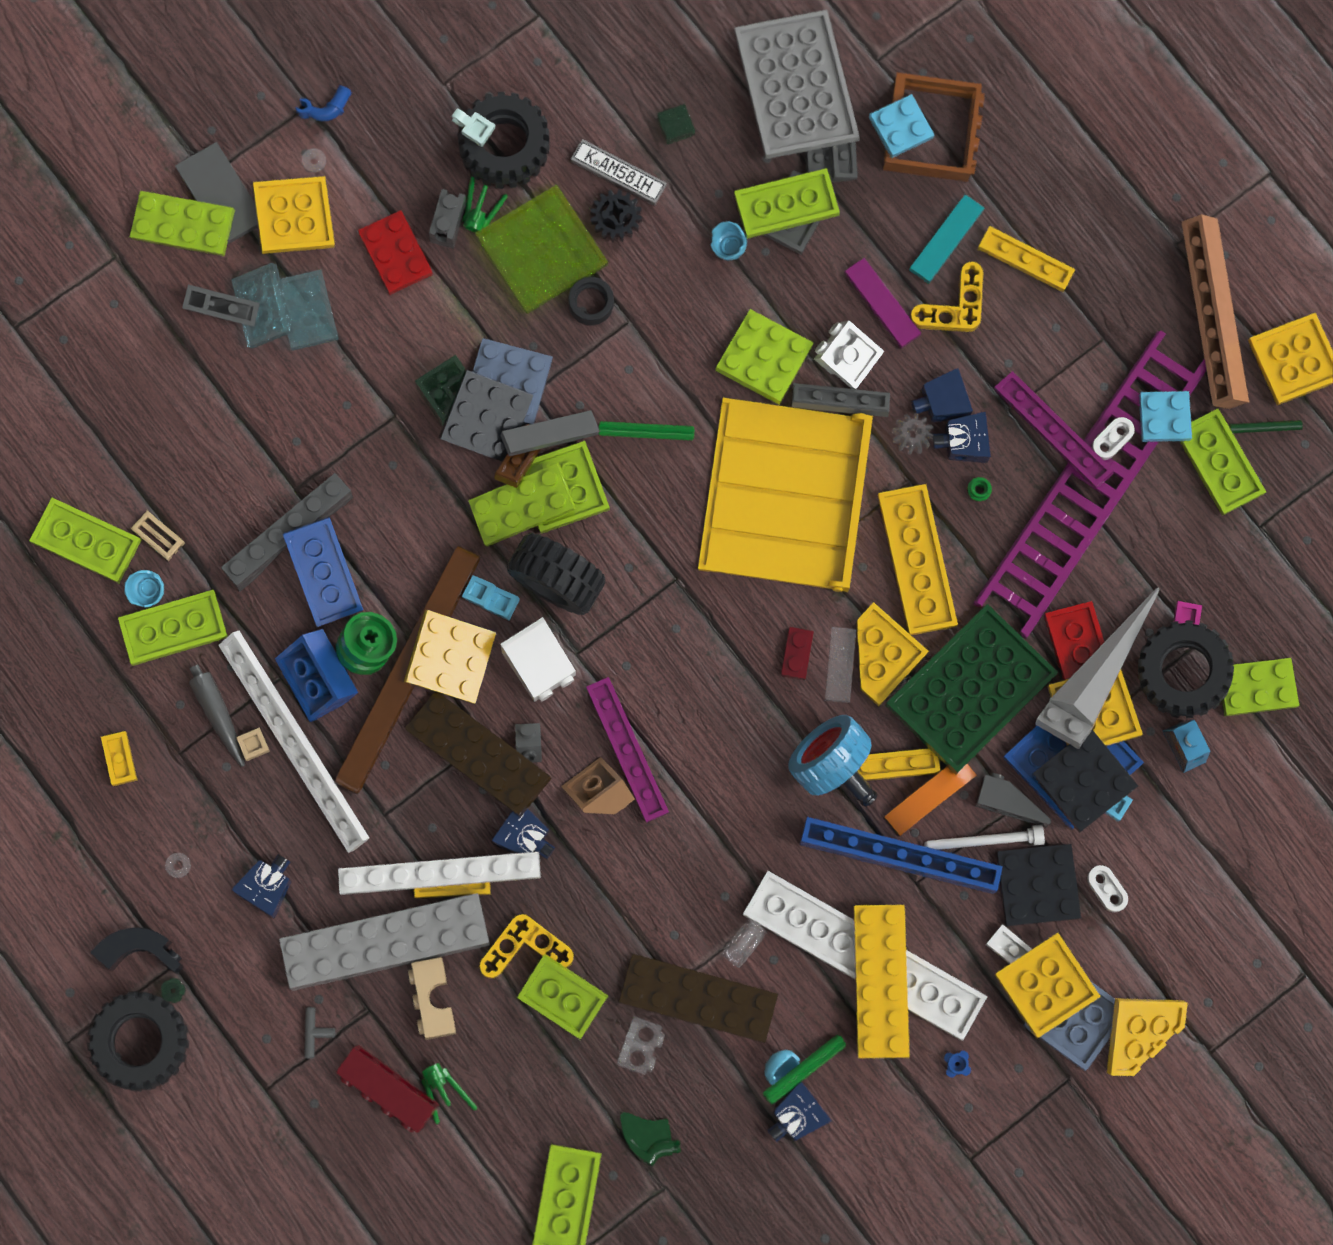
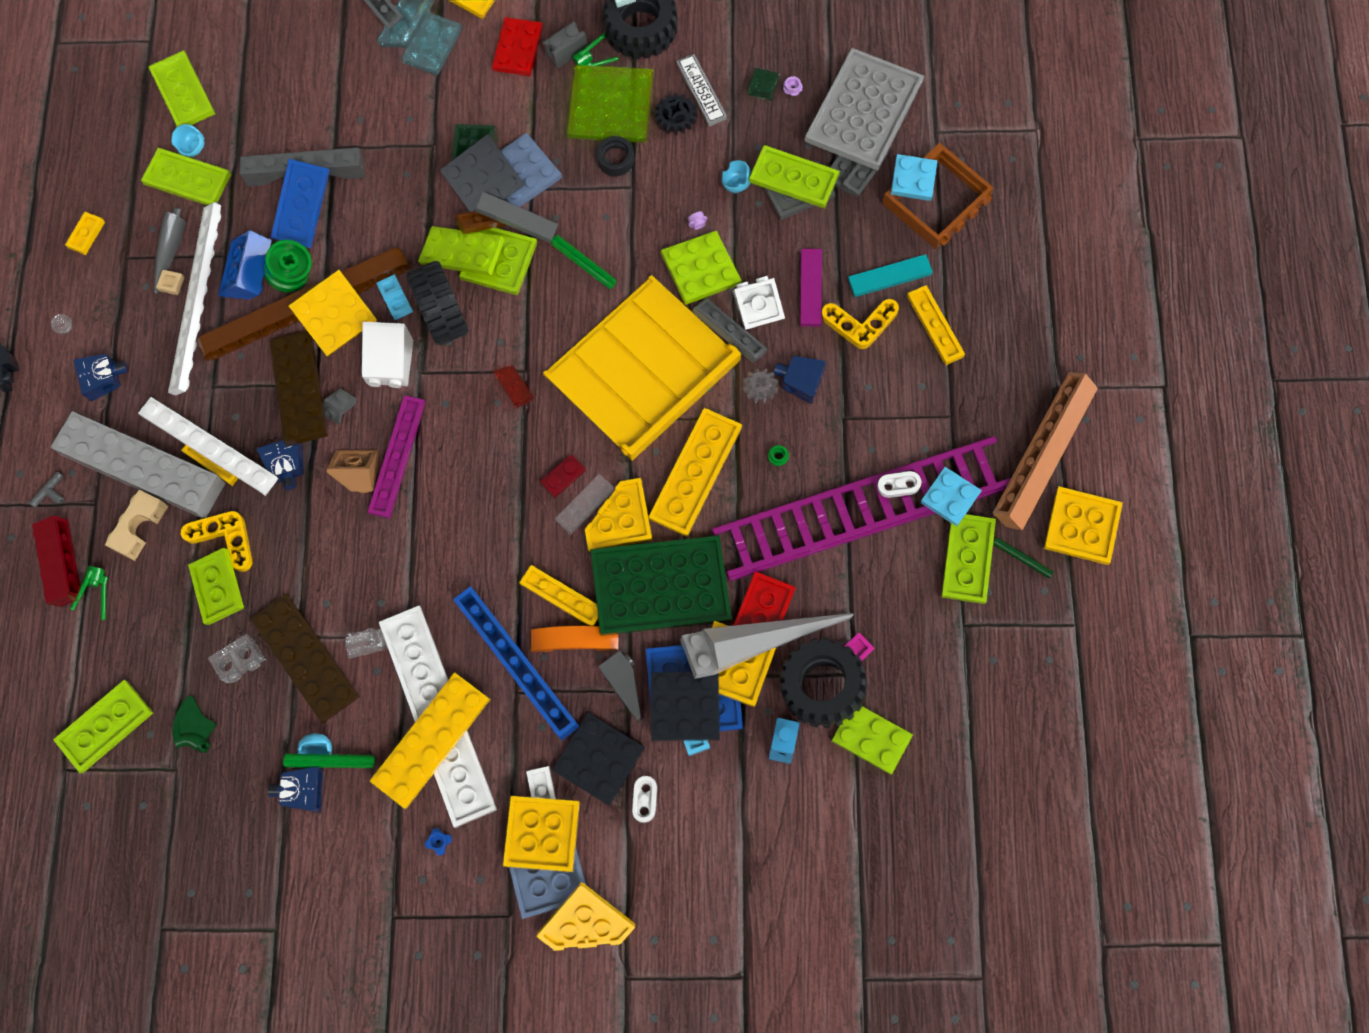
camera: 50 degrees right, 5 degrees down
(173, 548) = (229, 131): tan tile -> none
(680, 601) = (513, 386): none -> clear red slope
(706, 101) = (792, 82): none -> lavender plate
(724, 311) = (697, 220): none -> lavender plate
(832, 758) = (519, 558): dark azure wheel -> none
(965, 439) = (795, 414): dark blue torso -> none
(1032, 835) = (623, 720): white piece -> none
(1054, 430) = (861, 451): magenta plate -> none

